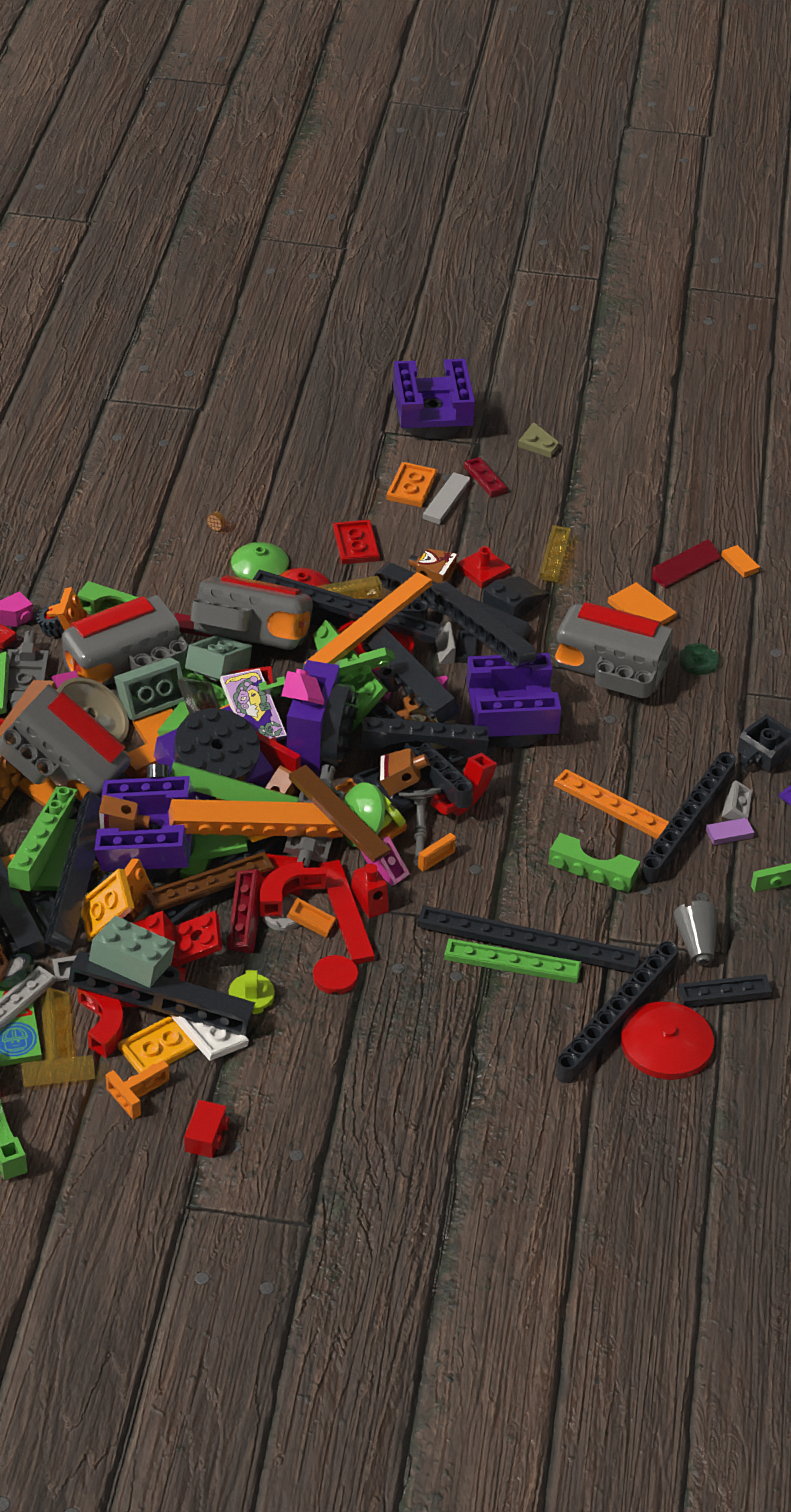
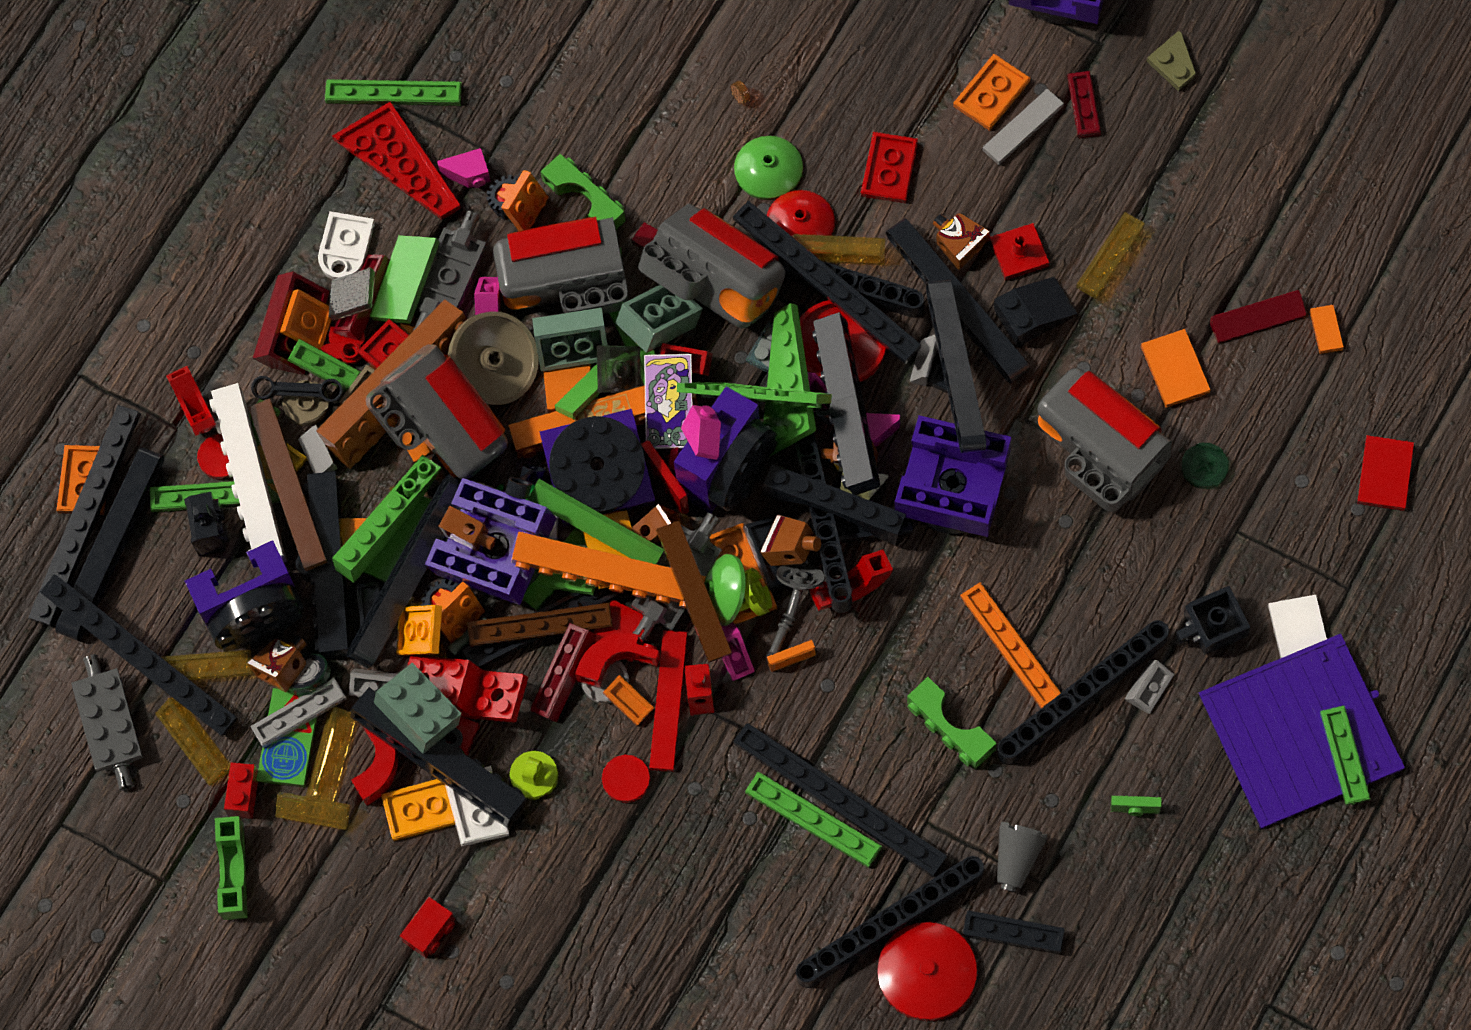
camera: 30 degrees right, 25 degrees up
(128, 1092) = (380, 854): orange bracket -> none
(373, 619) = (830, 331): orange tile -> none
(729, 831) = (1121, 723): medium lavender tile -> none

